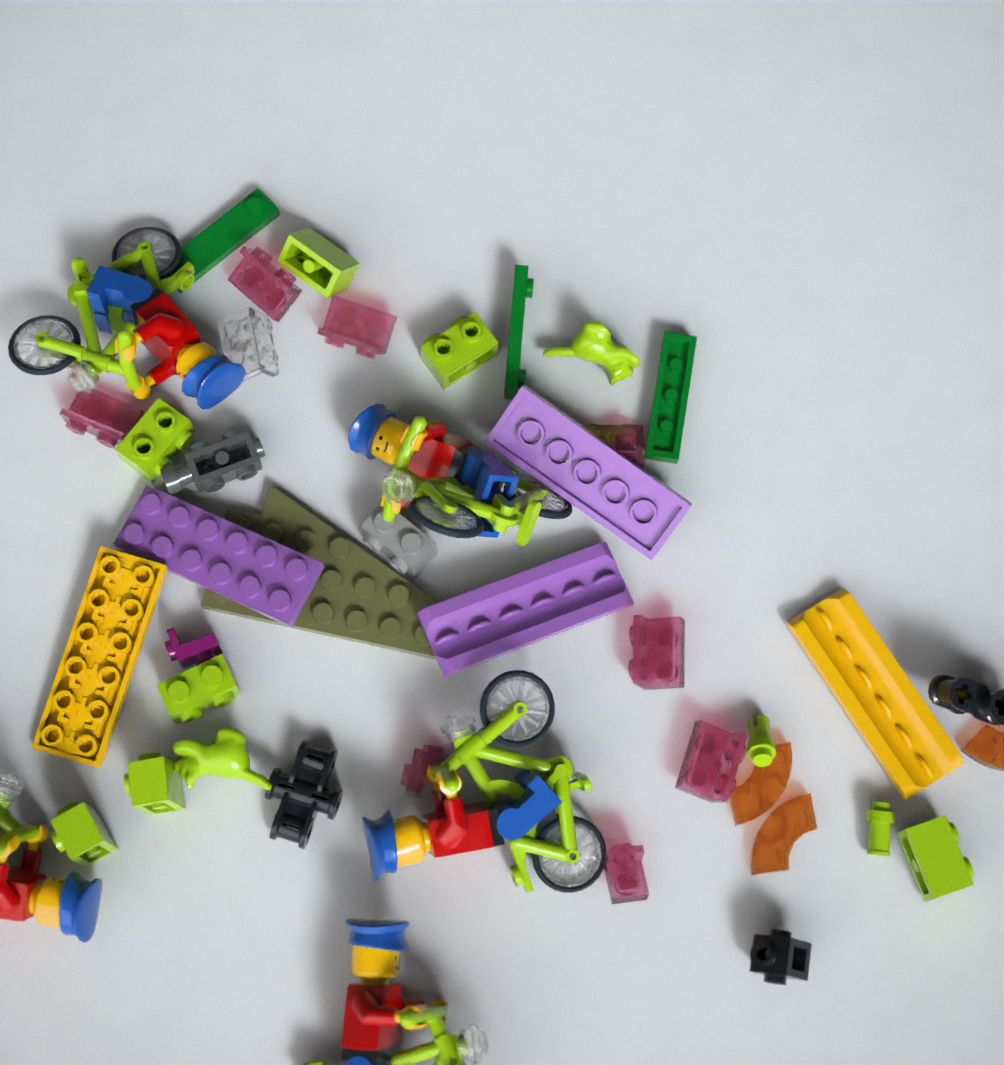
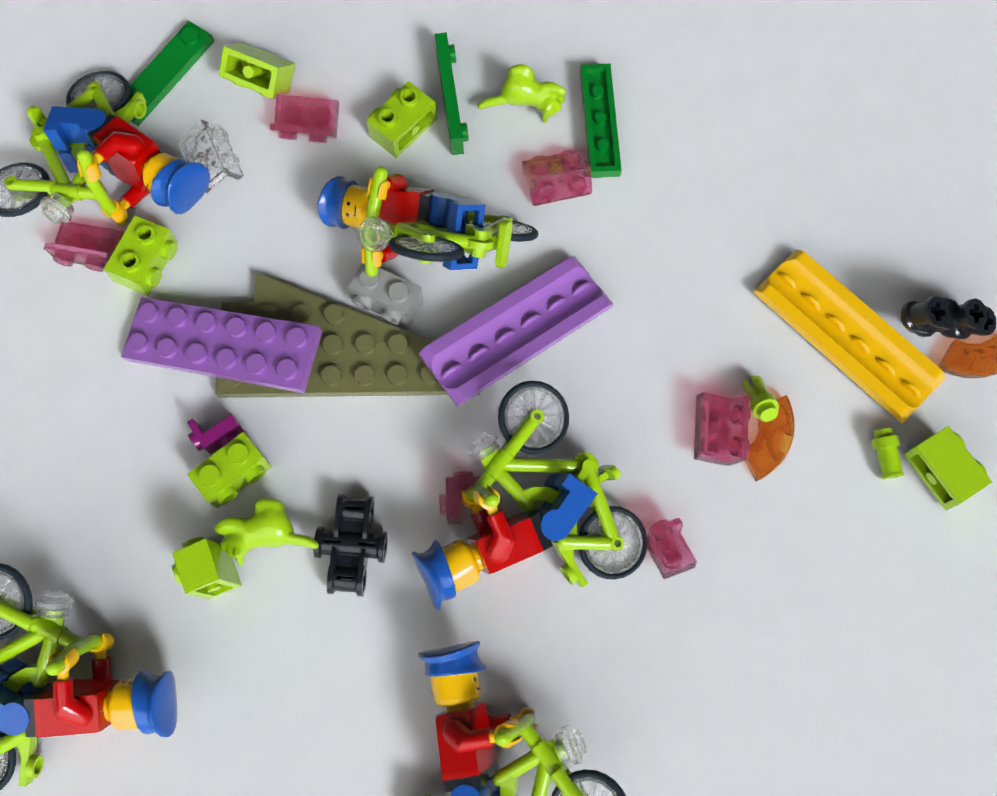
camera: 10 degrees left, 0 degrees up
(81, 834) = (143, 632): lime brick -> none
(100, 657) = (129, 463): yellow plate -> none
(221, 458) = (202, 263): dark grey brick -> none
(265, 284) = (212, 99): clear pink bracket -> none
(587, 472) = (544, 195): plate -> none
(657, 652) = (647, 342): clear pink bracket -> none
(779, 833) = (798, 480): clear orange tile -> none
(780, 957) = (832, 591): black brick -> none

